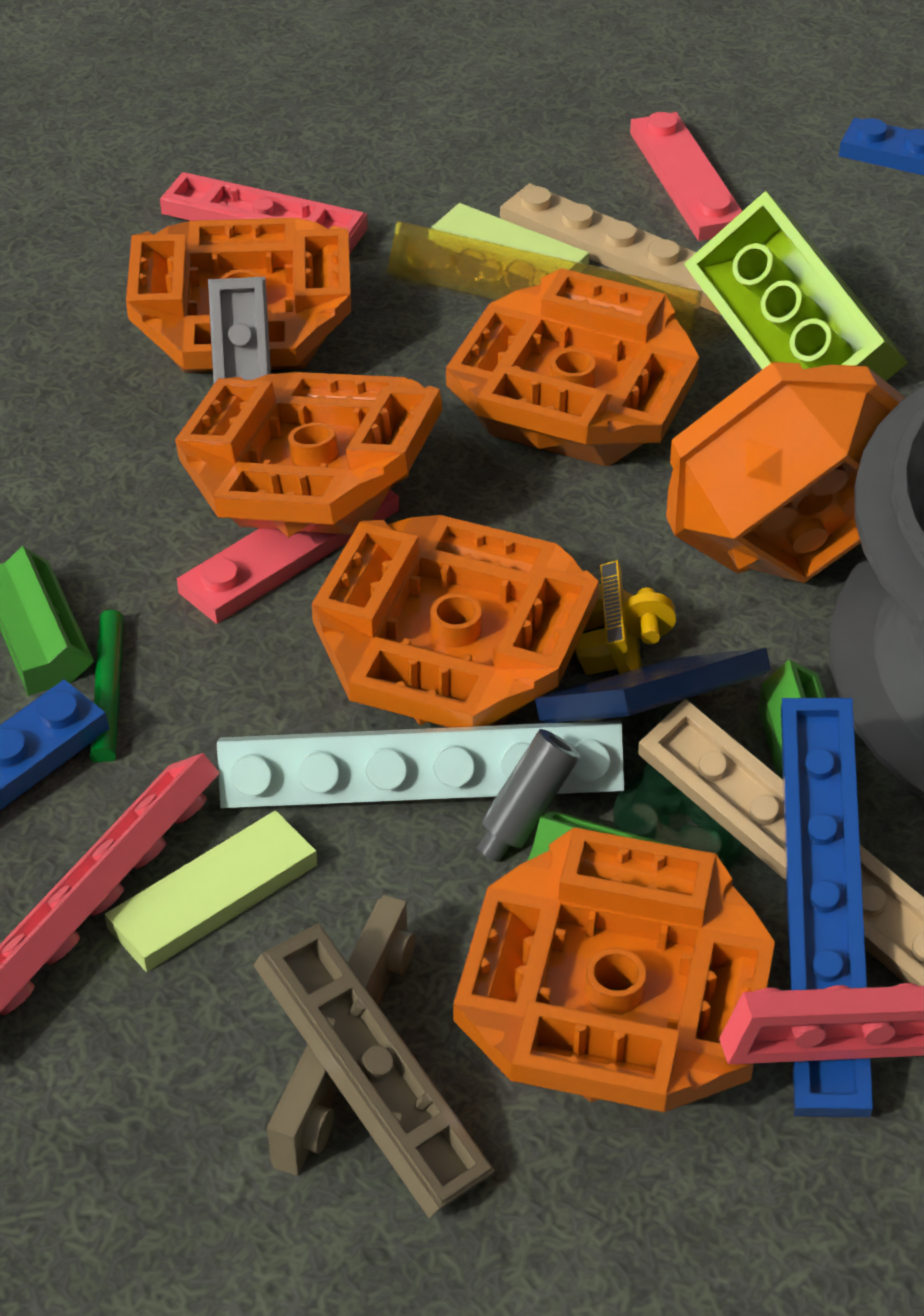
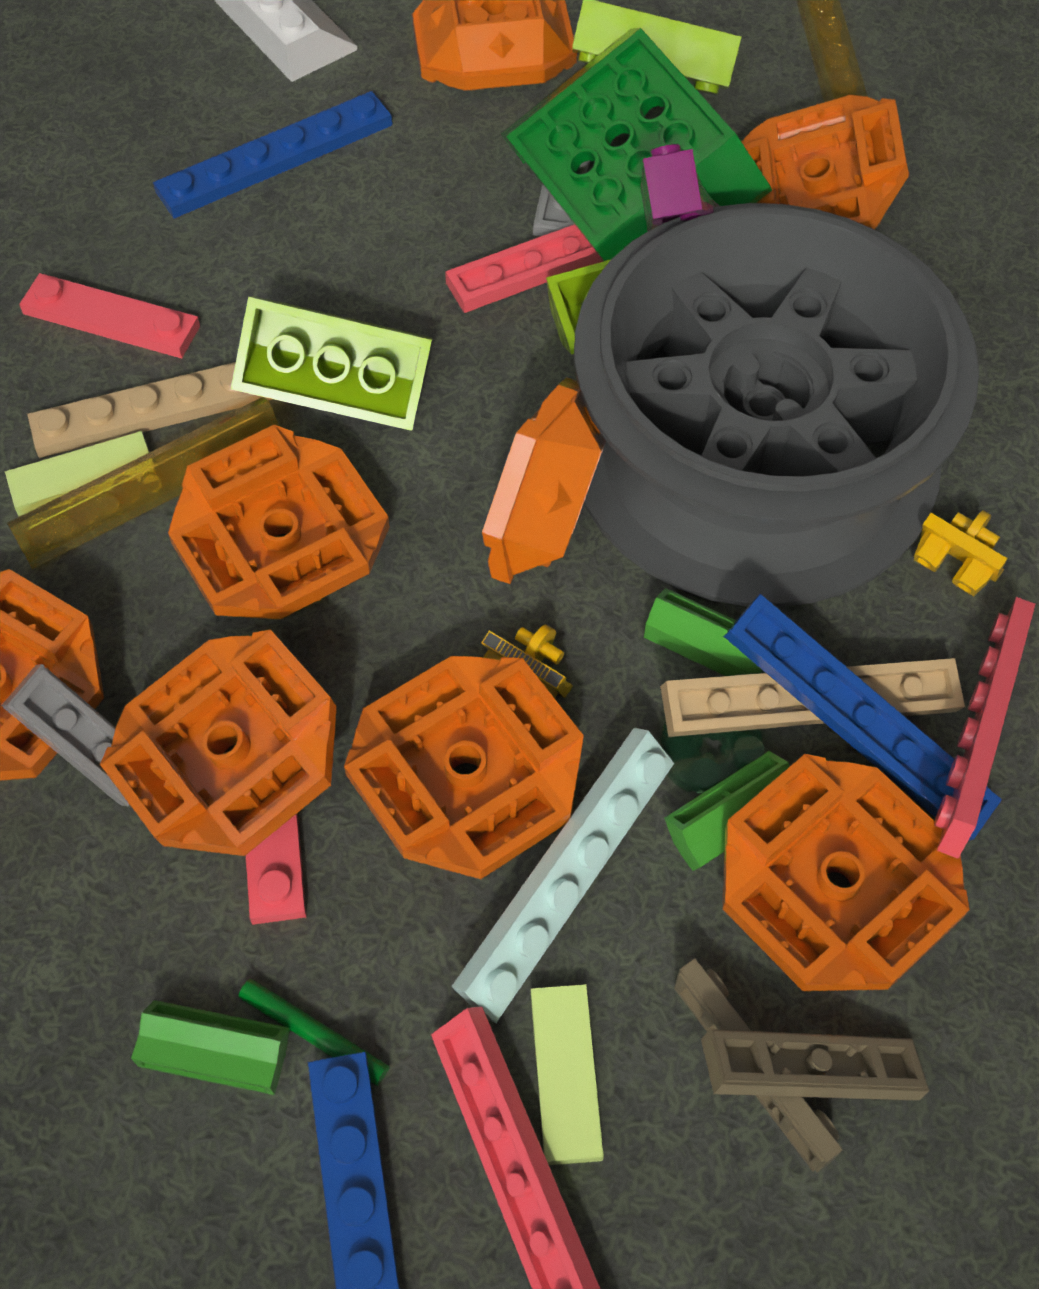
camera: 55 degrees left, 15 degrees up
(527, 793) = (650, 823): dark grey cylinder -> none
(652, 686) = (623, 689): dark blue tile -> none

